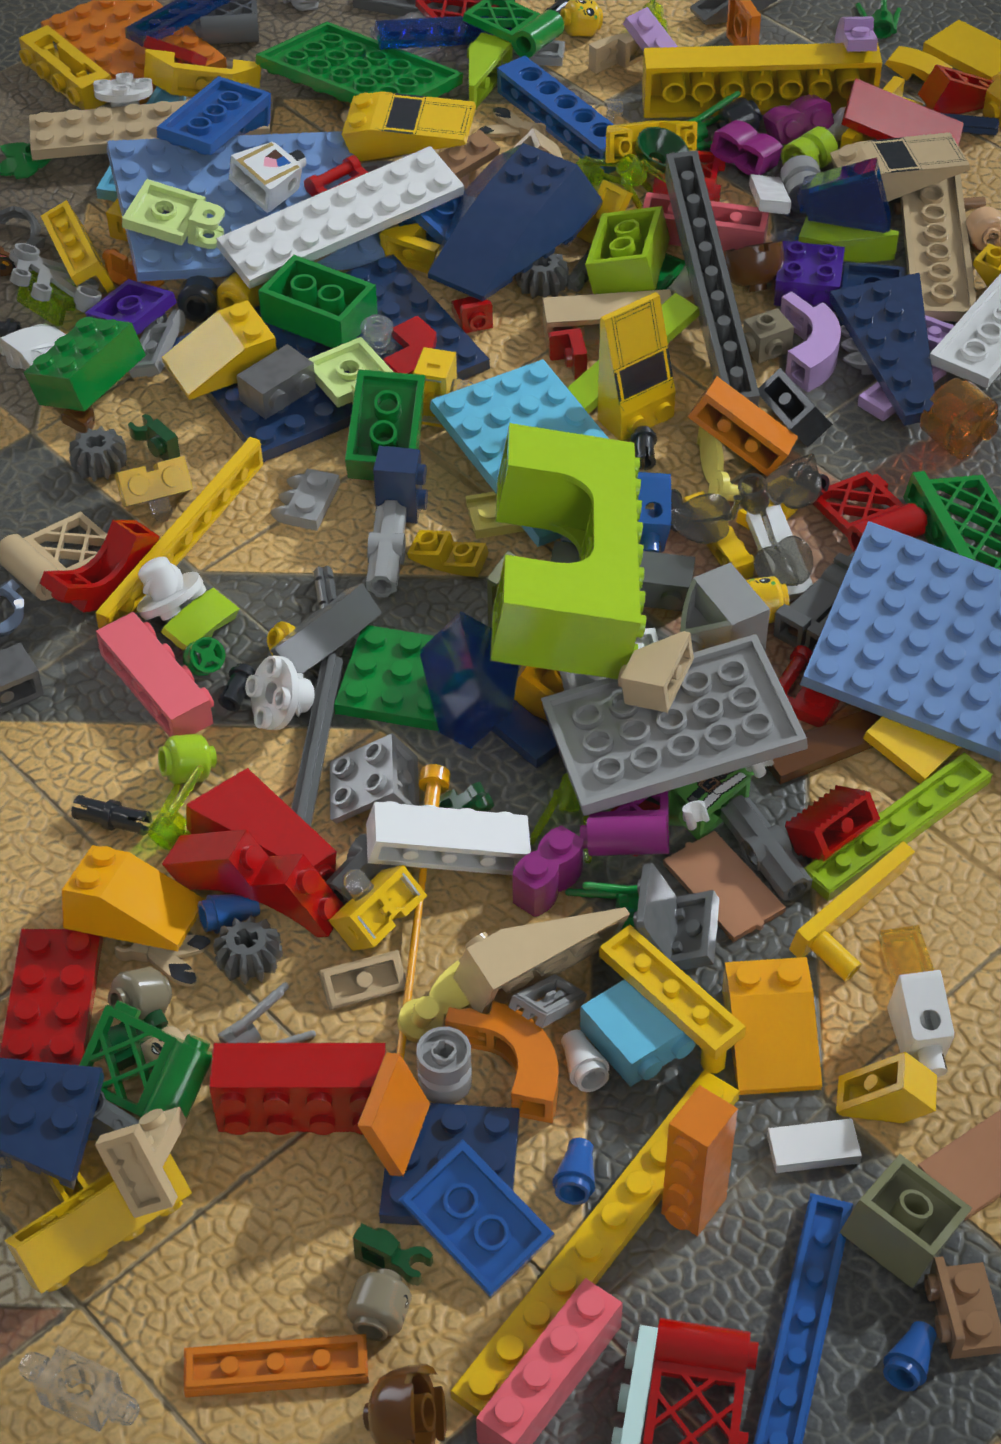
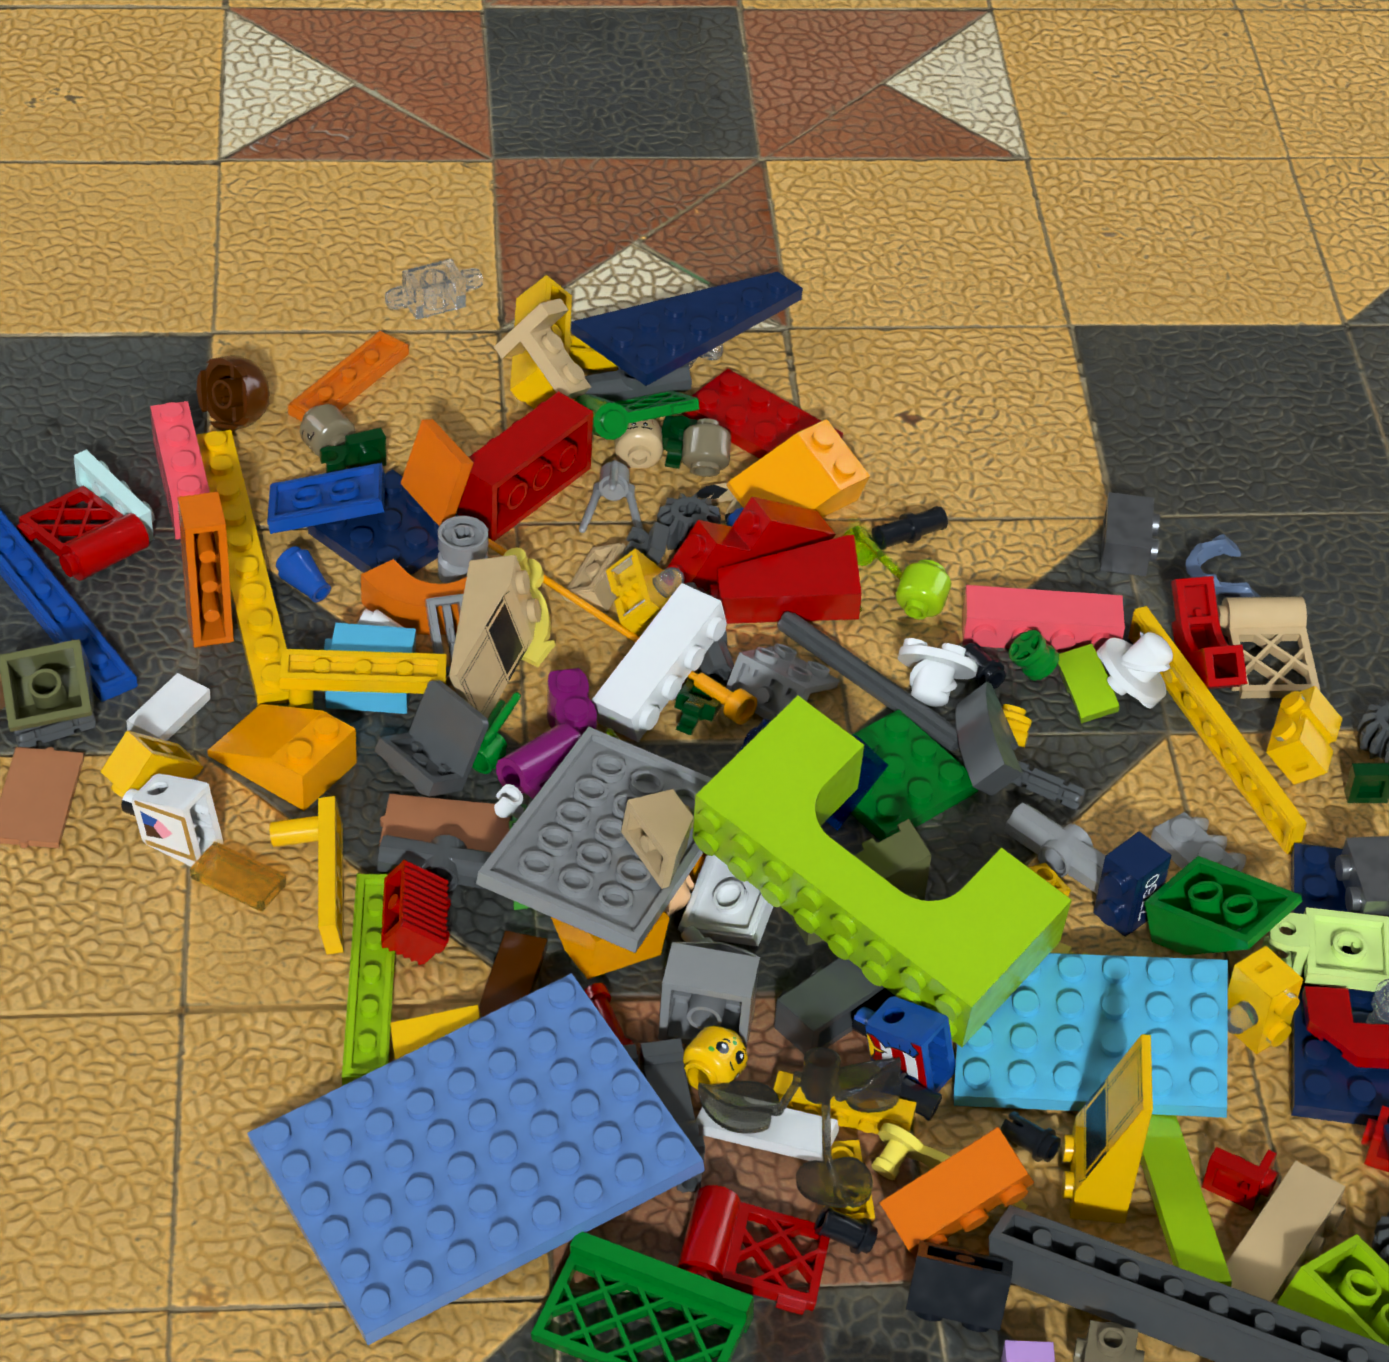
camera: 125 degrees right, 5 degrees down
(306, 950) = (650, 544): none -> dark grey tile

